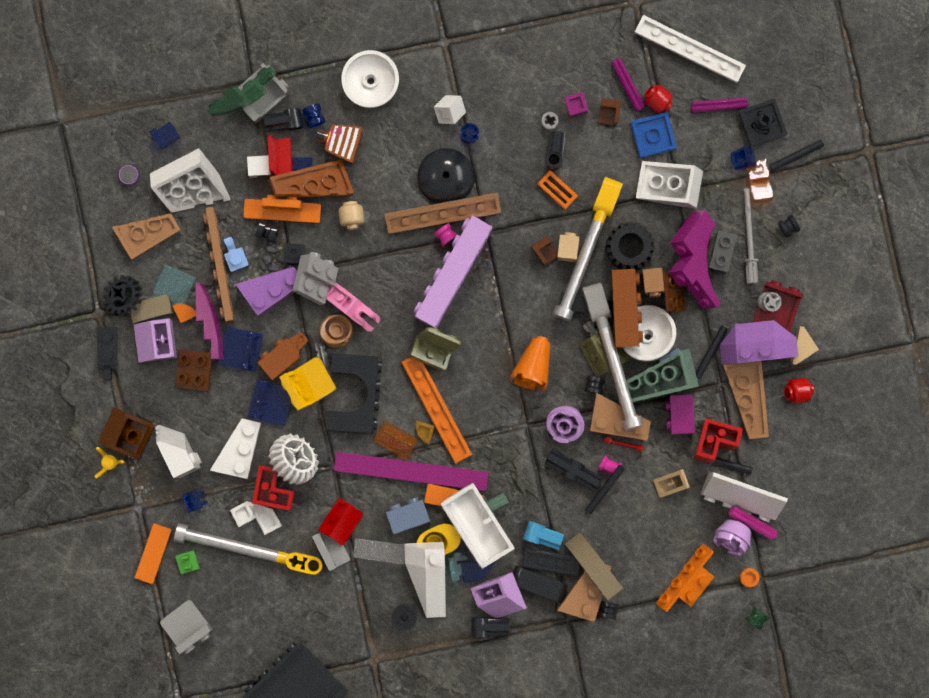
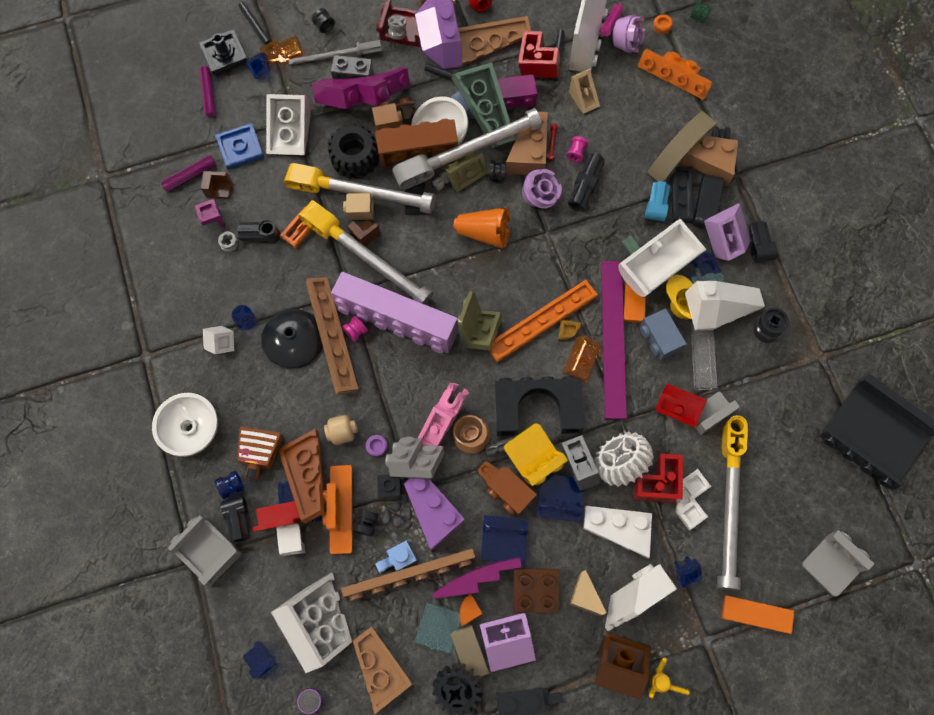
camera: 95 degrees left, 15 degrees down
(183, 411) = (586, 597): none -> tan slope
(187, 562) = (759, 572): bright green tile -> none
(235, 99) = (209, 572): clear green slope -> none
(295, 422) = (581, 463): none -> brick
(335, 246) = (376, 446): none -> medium lavender tile
(550, 216) = (327, 225): none -> piece
(605, 488) = (601, 149): black bar -> none
(658, 98) = (201, 142): red head -> none
(689, 49) = (150, 121): white plate -> none

